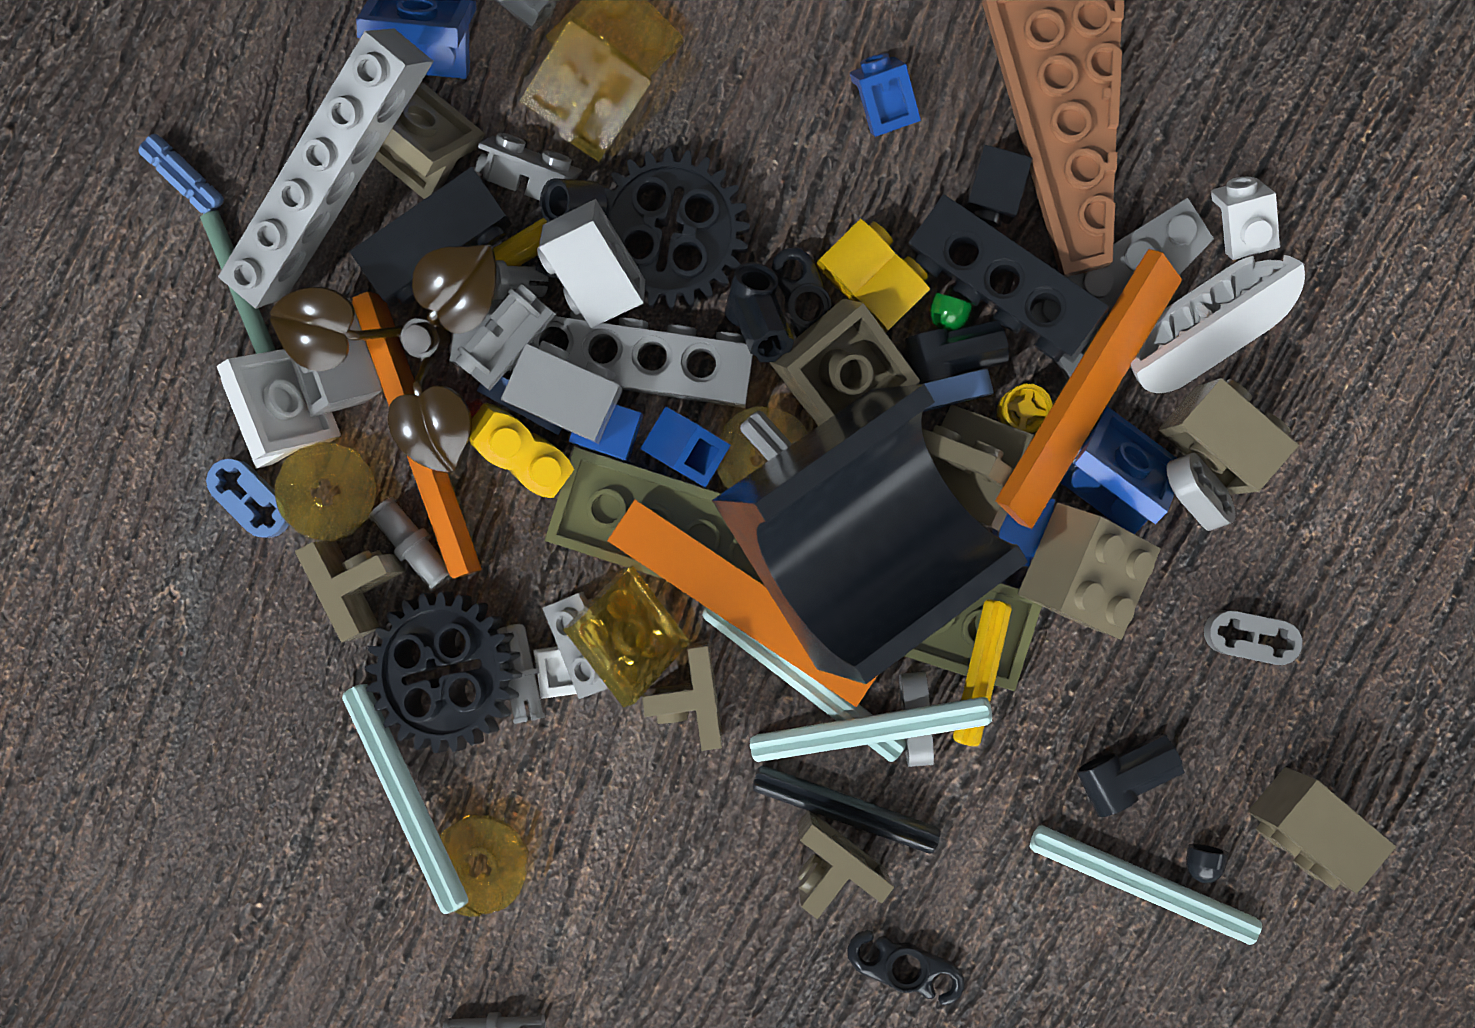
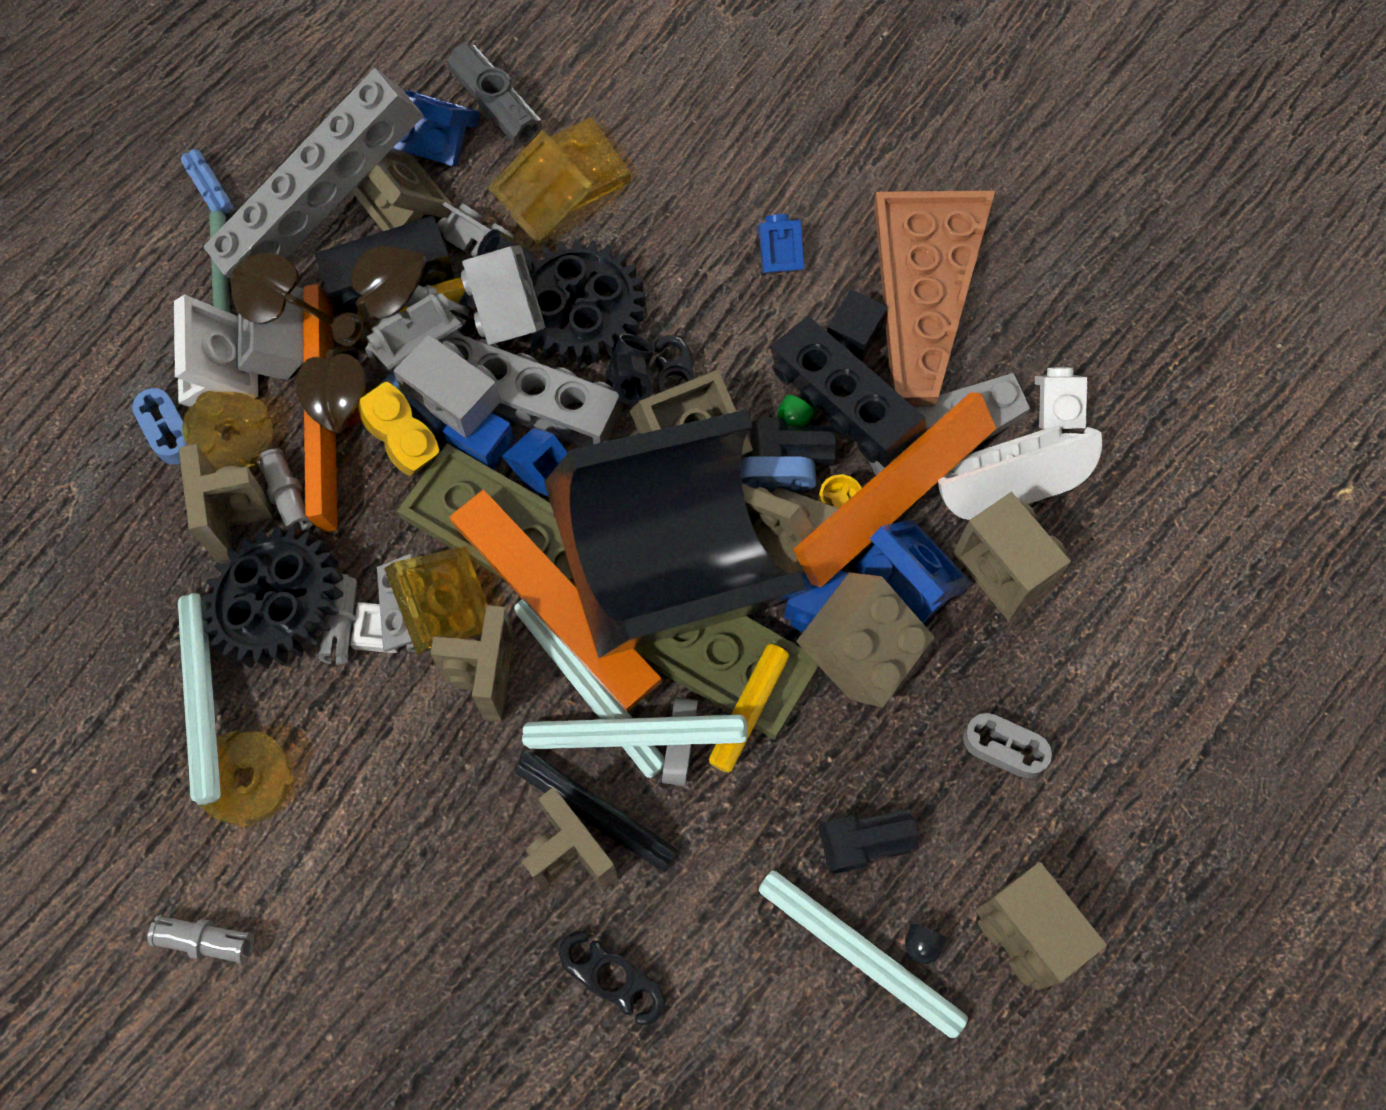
camera: 10 degrees right, 20 degrees down
(872, 273) = (745, 374): yellow brick -> none
(1201, 491) = (980, 600): light grey beam -> none

